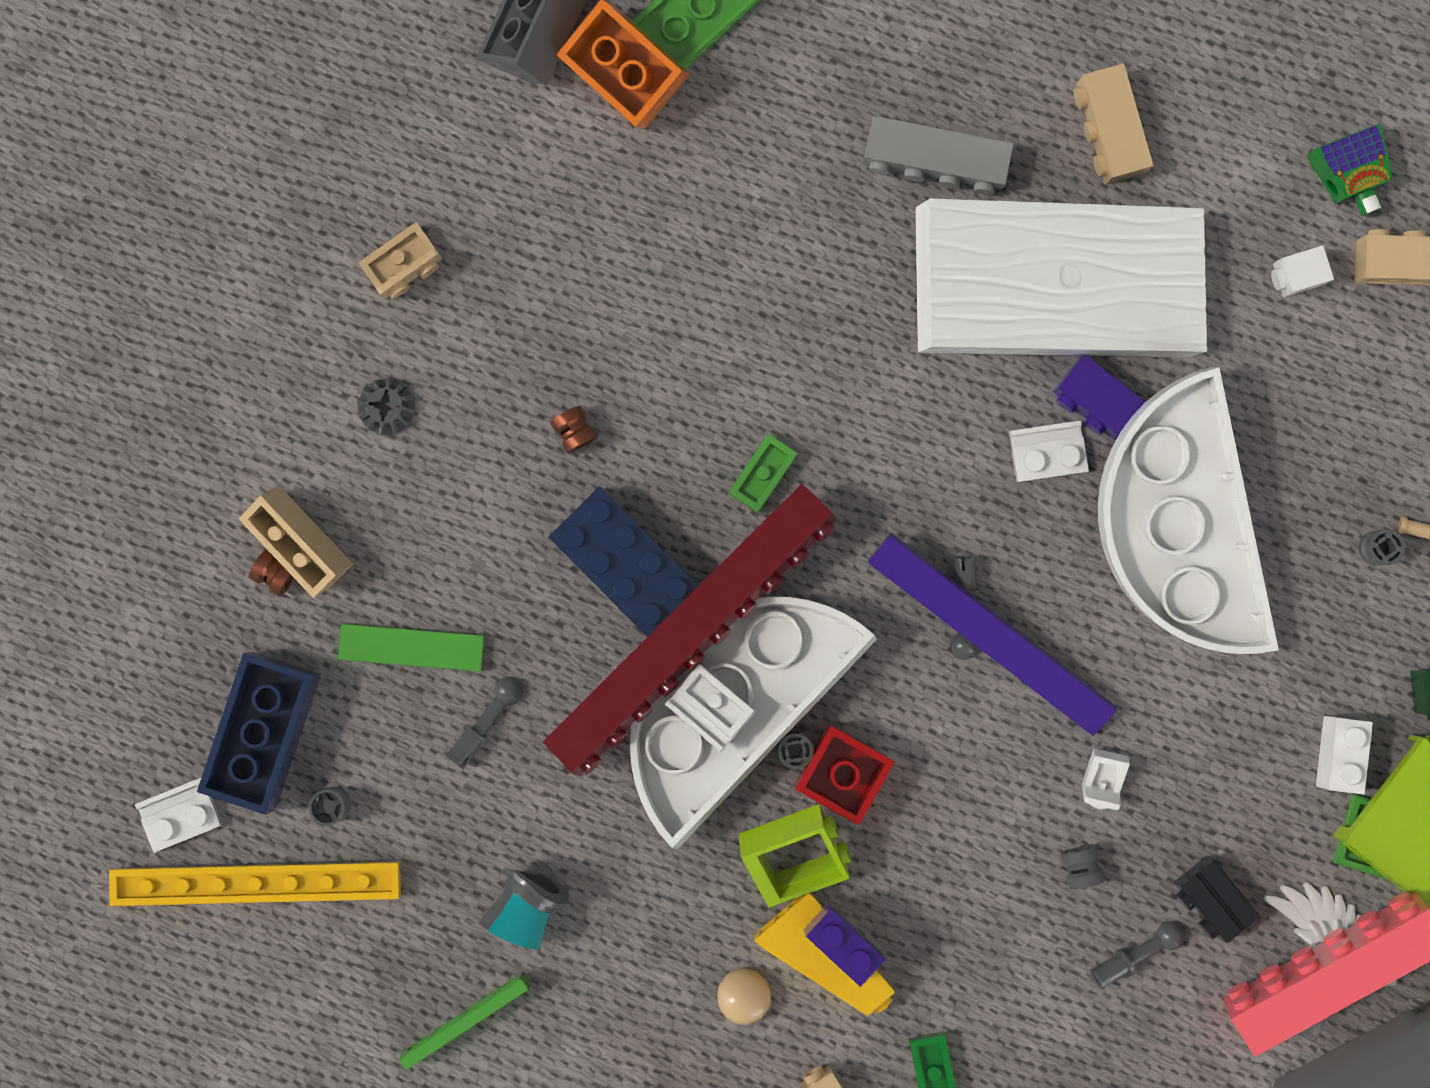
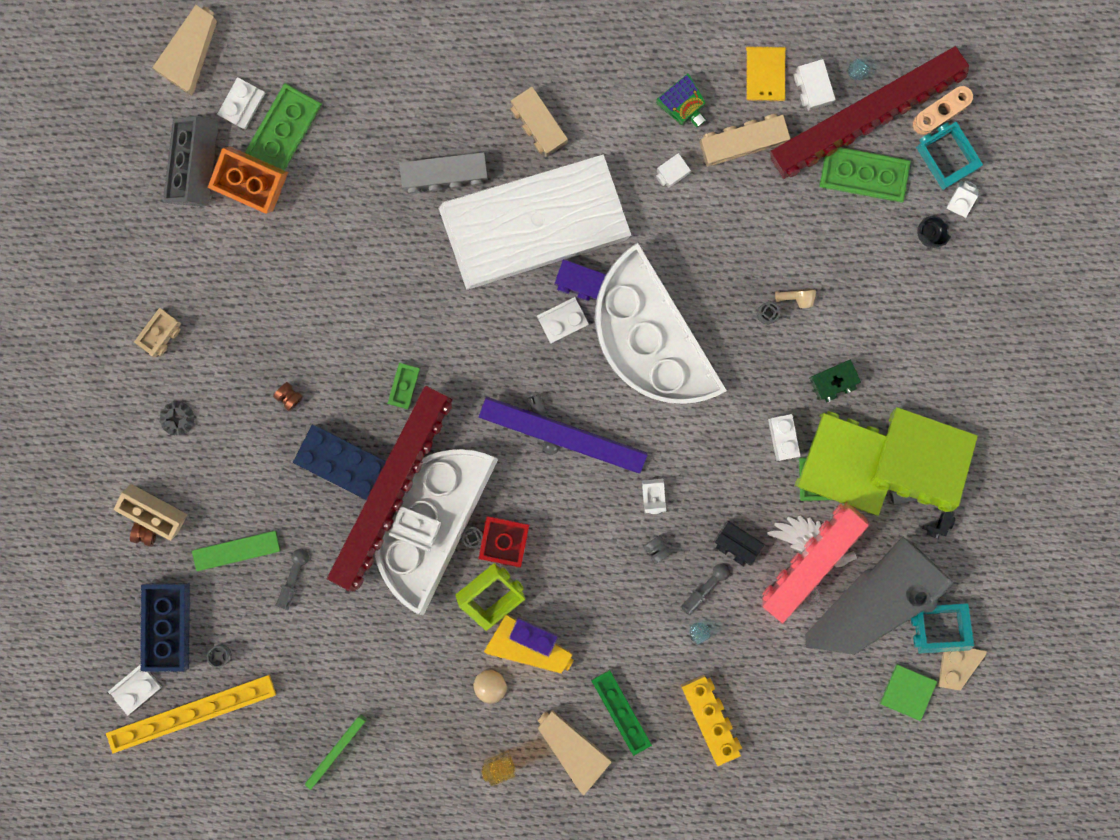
camera: 15 degrees left, 0 degrees up
(524, 908) = (348, 676): hat -> none
(1106, 1022) = (699, 633): none -> clear light blue plate

